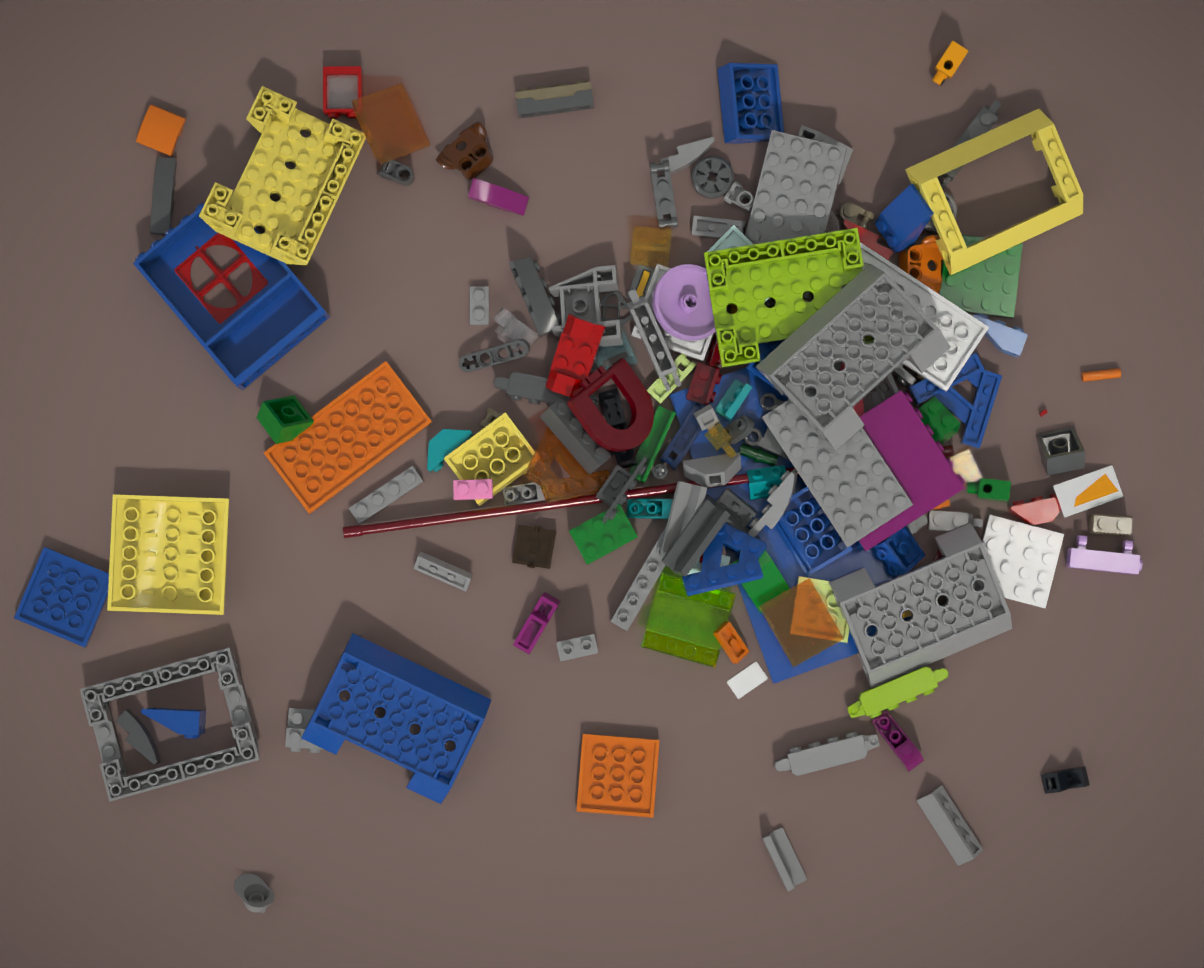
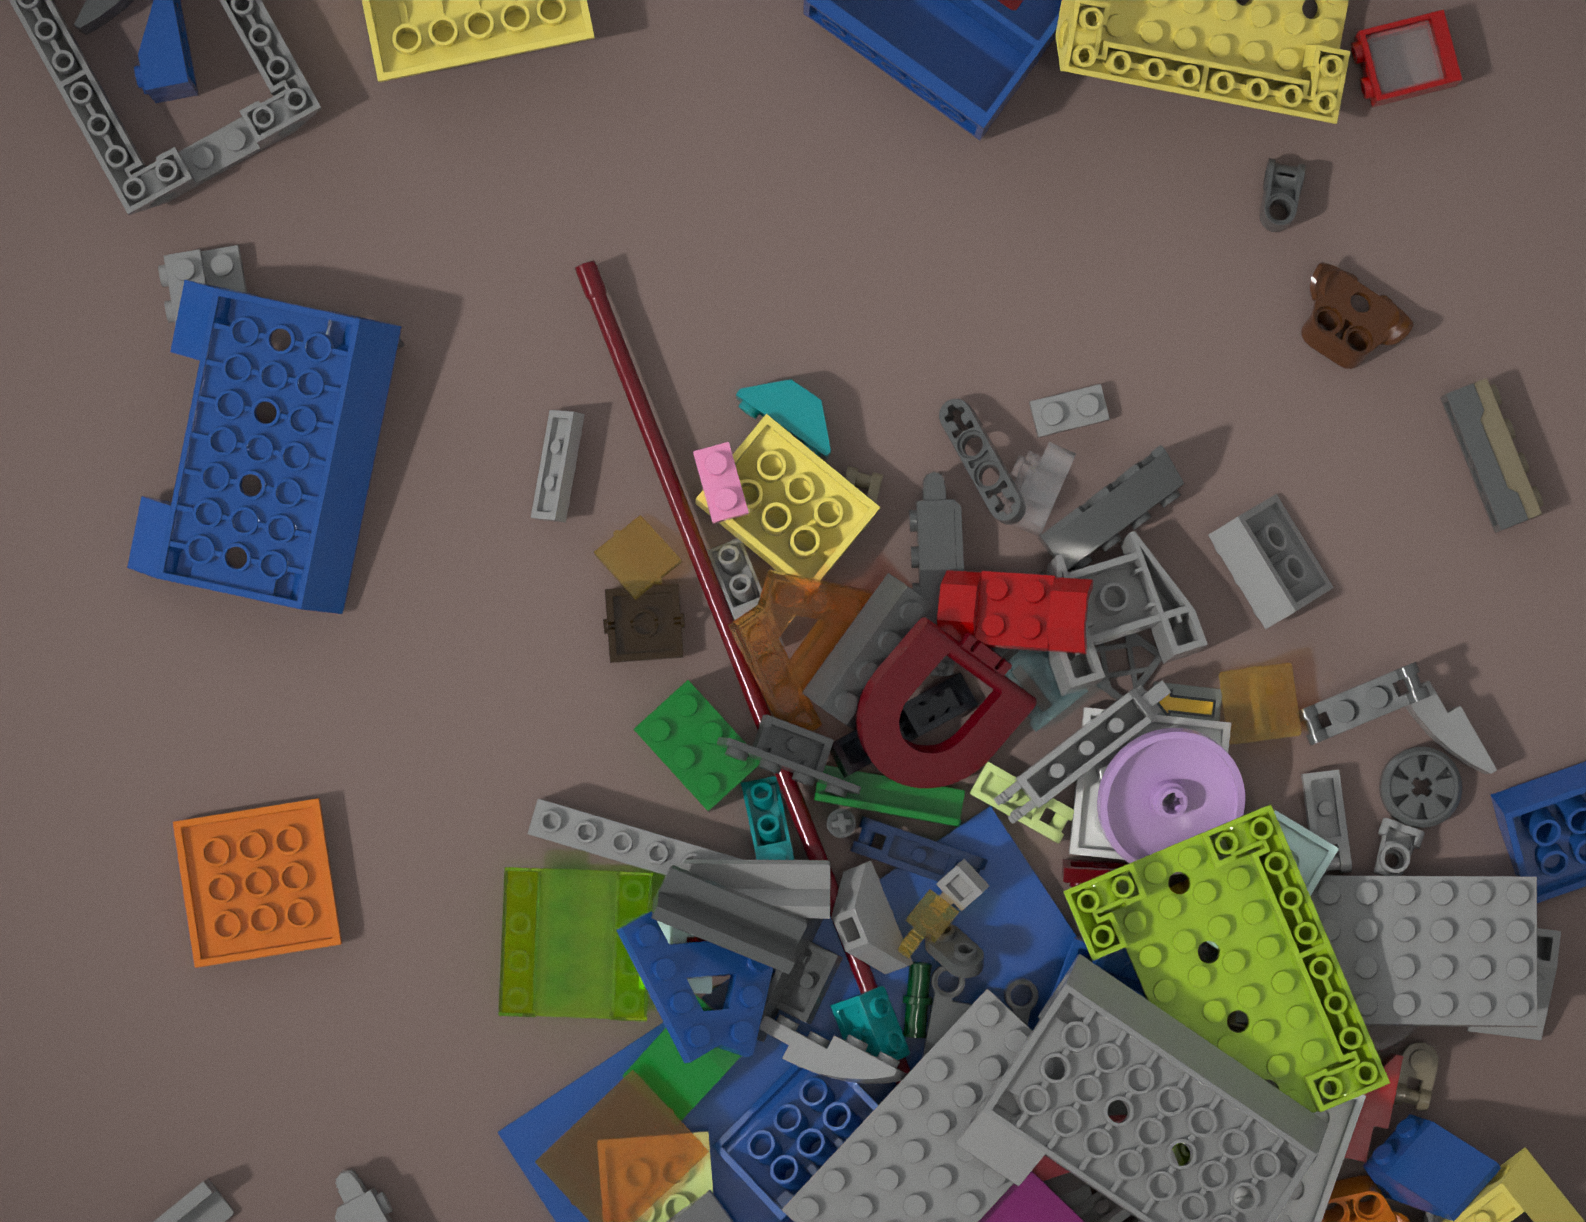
camera: 75 degrees right, 0 degrees up
(284, 418) = (768, 102): green slope -> none
(349, 437) = (763, 228): orange plate -> none
(386, 495) = (674, 326): light grey plate -> none
(390, 123) = (1368, 160): clear orange piece -> none
(498, 197) = (1281, 395): magenta slope -> none
(499, 542) = (637, 557): none -> clear yellow piece
(536, 623) = (504, 662): magenta slope -> none
(577, 647) = (474, 748): light grey panel -> none
(580, 223) = (1270, 561): none -> light grey slope
(703, 384) = (1025, 865): dark red bracket -> none
(731, 642) = (554, 1034): orange plate -> none
(733, 399) = (1010, 927): teal bracket -> none
(747, 680) = (492, 1081): white sticker -> none

